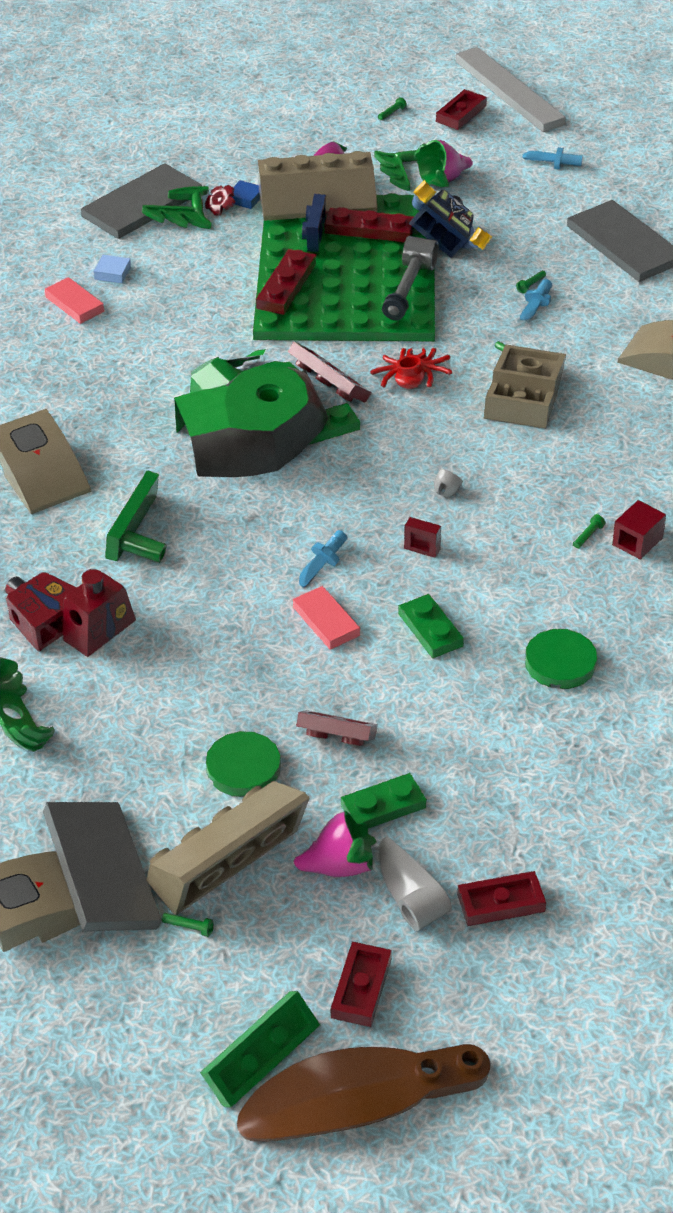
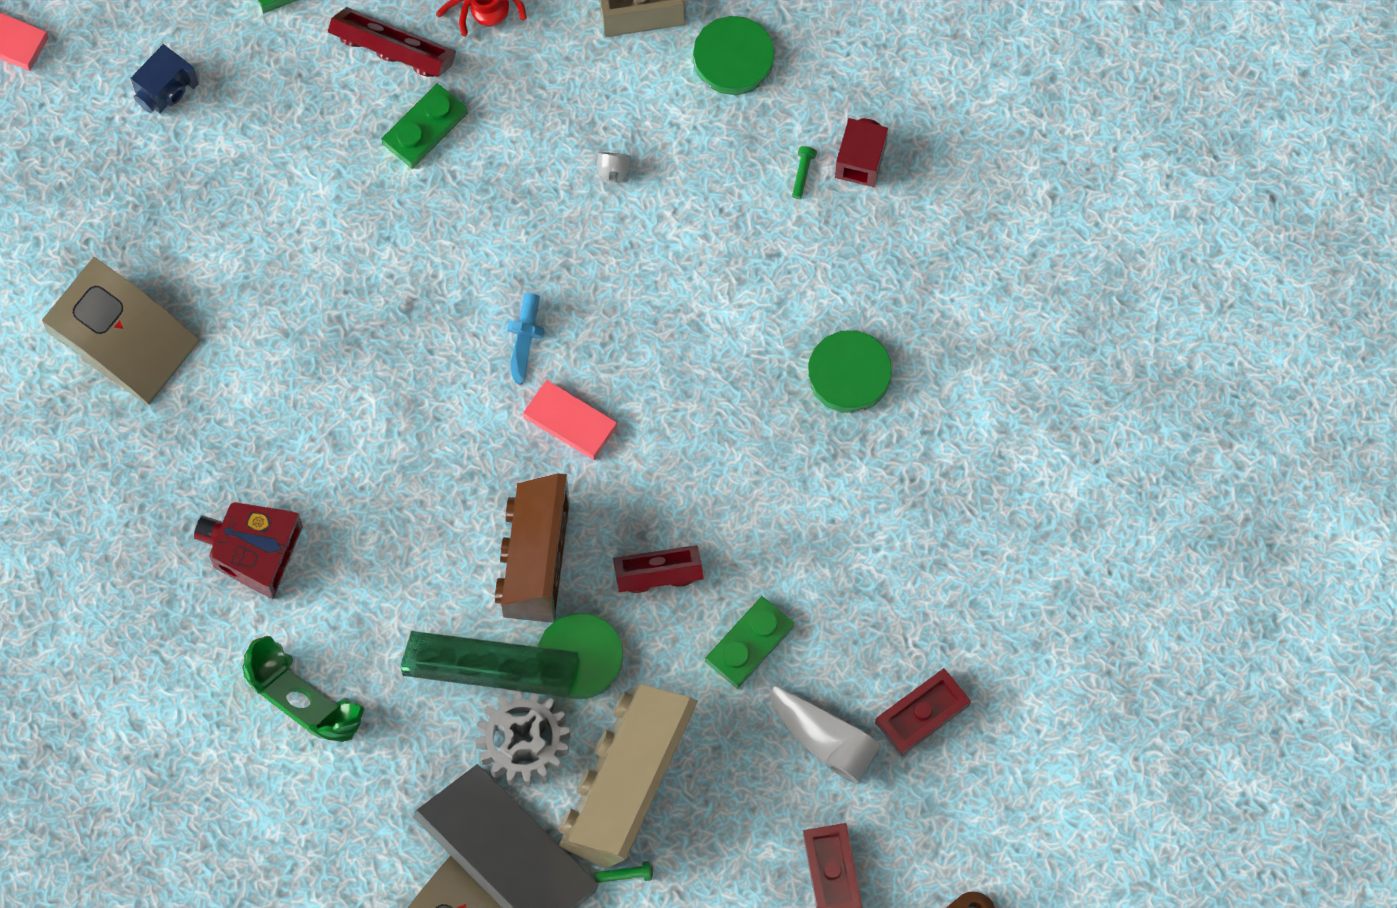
camera: 25 degrees left, 25 degrees up
(95, 612) = (322, 529): dark red torso -> none
(122, 533) = (284, 405): green piece -> none
(160, 345) = (162, 80): none -> dark blue brick
(163, 796) = (536, 750): none -> light grey gear
(168, 737) = (490, 664): none -> clear green plate
(250, 417) = (341, 154): piece -> none
(250, 678) = (534, 549): none -> reddish brown slope
(340, 849) = (739, 727): dark pink hat -> none
(422, 537) = (626, 262): dark red plate -> none
(430, 626) = (689, 383): green plate -> none
(572, 452) = (733, 55): none -> green tile

